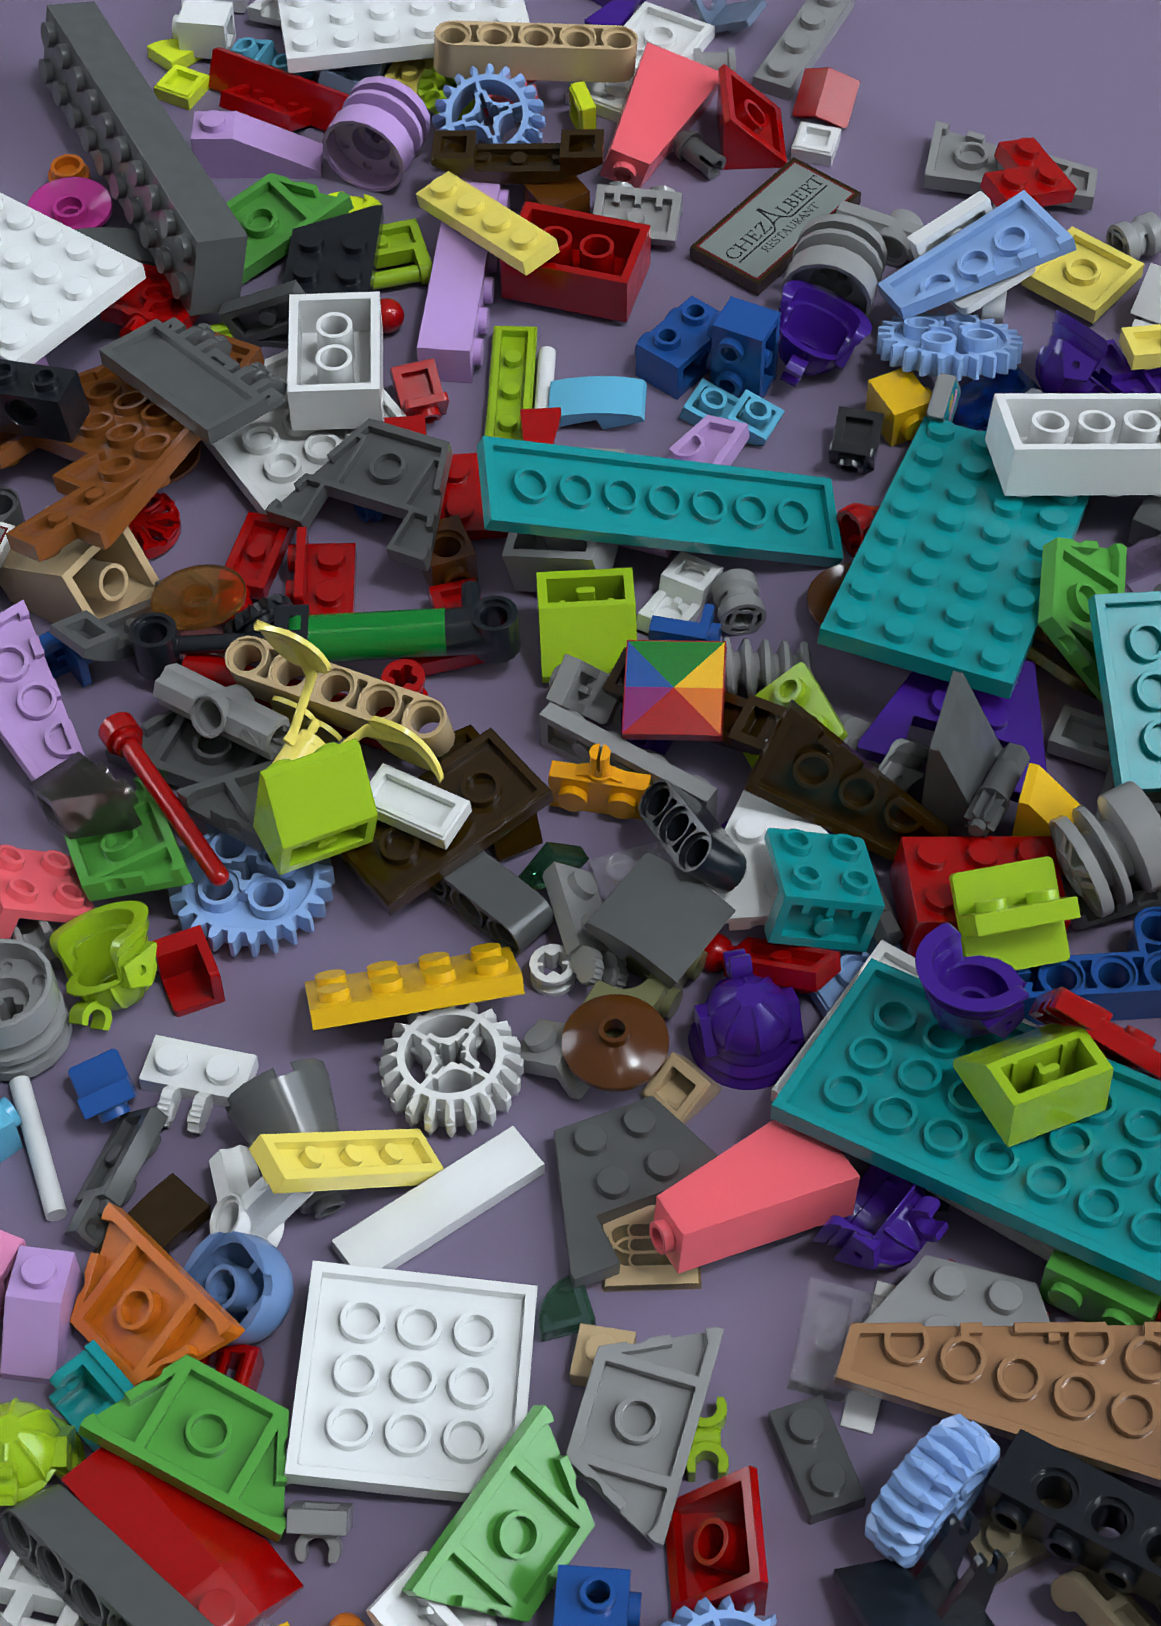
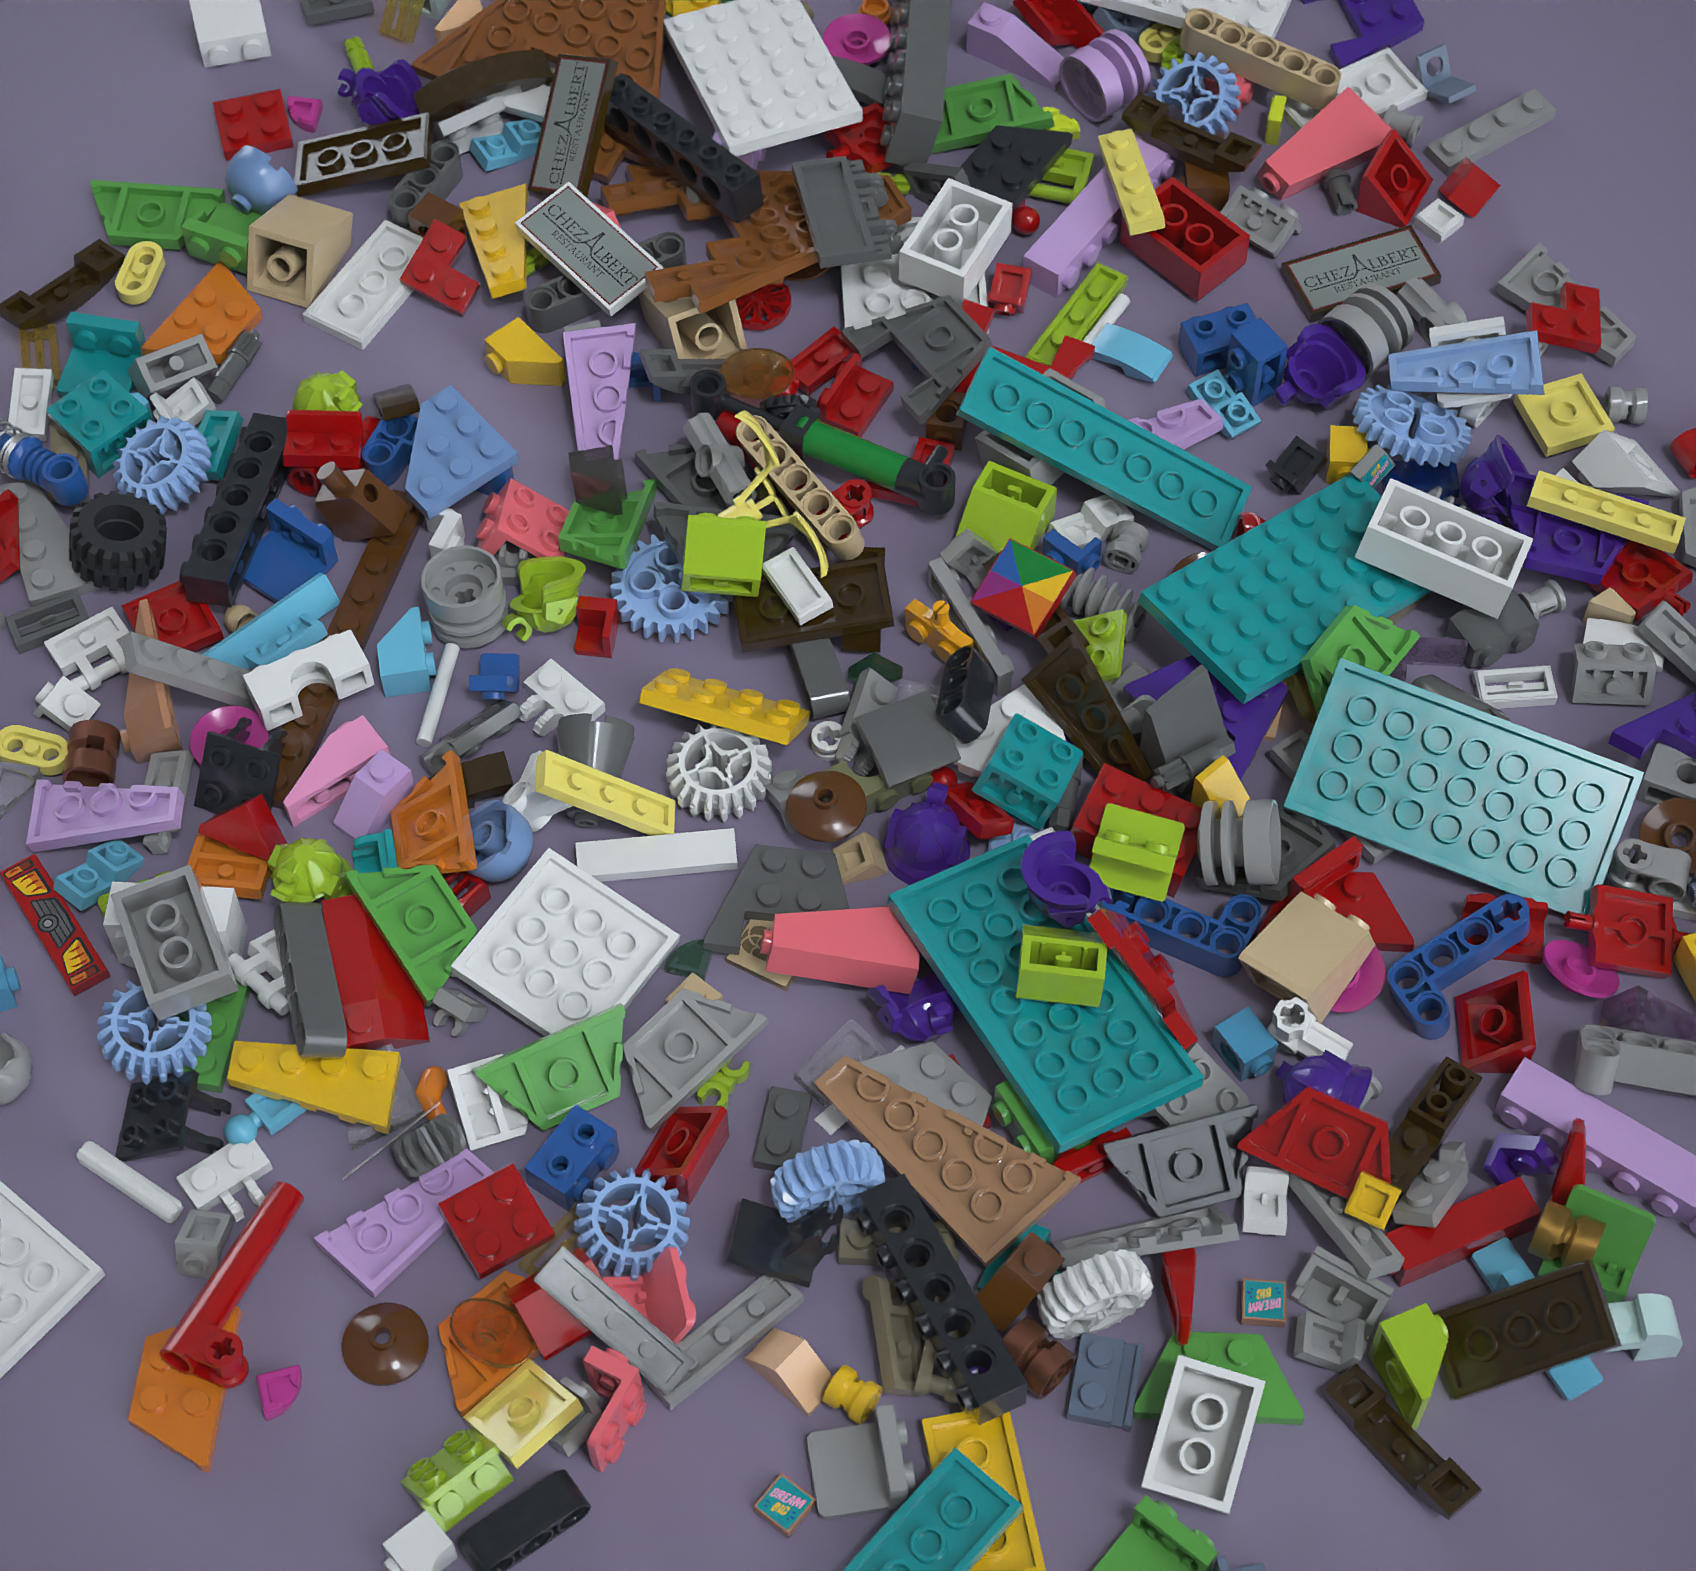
camera: 30 degrees right, 5 degrees up
(124, 738) = (647, 450): red piece -> none

